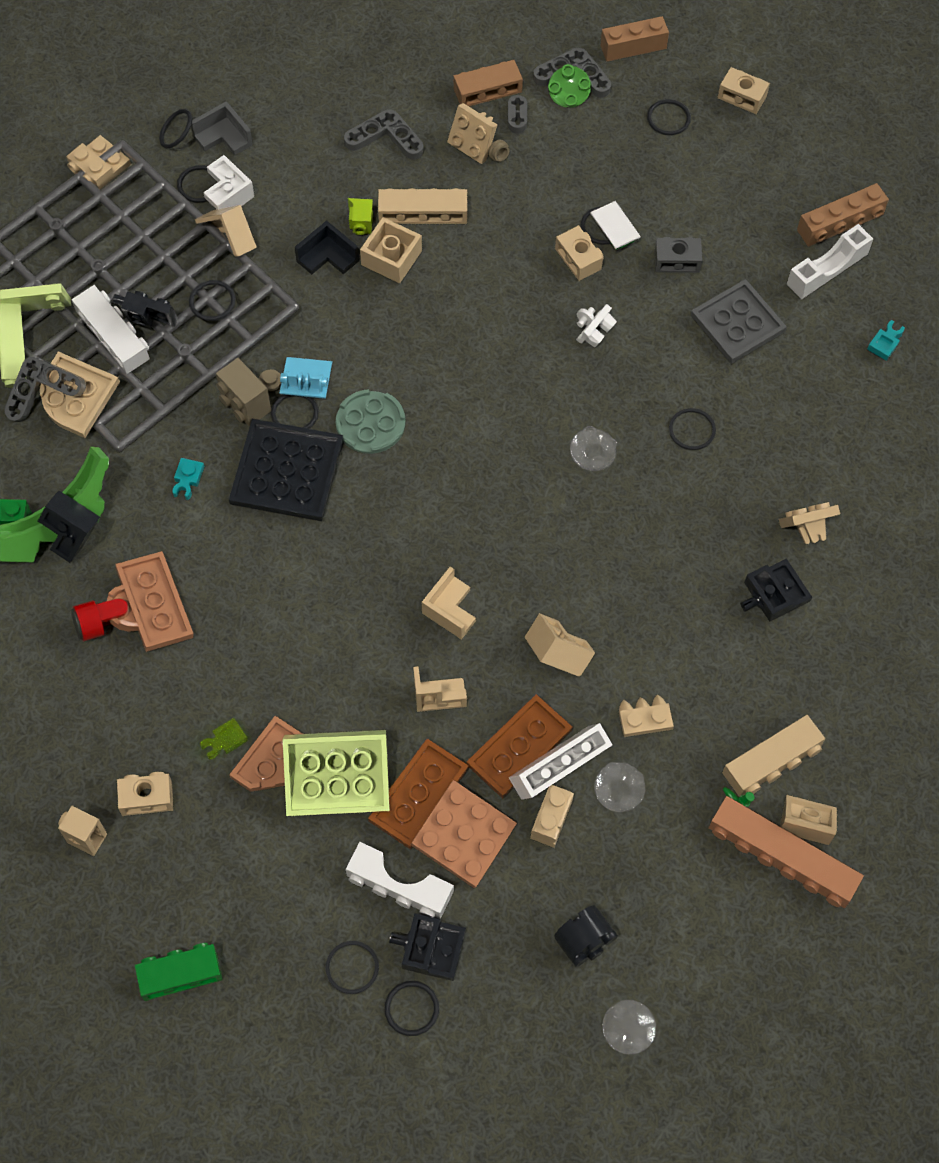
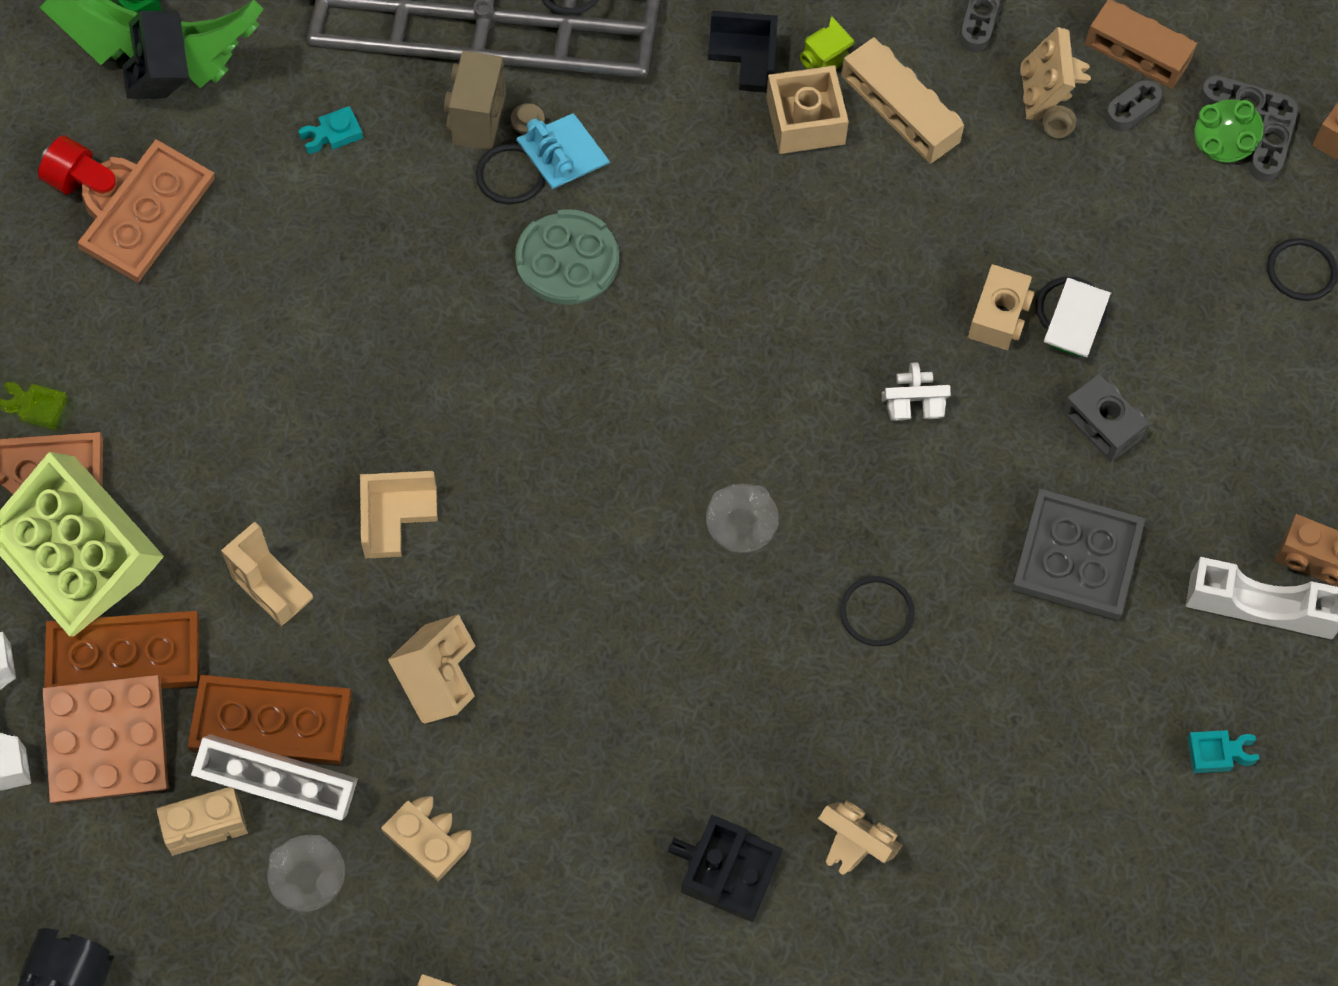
camera: 50 degrees right, 0 degrees up
(286, 469) = (425, 218): black plate -> none

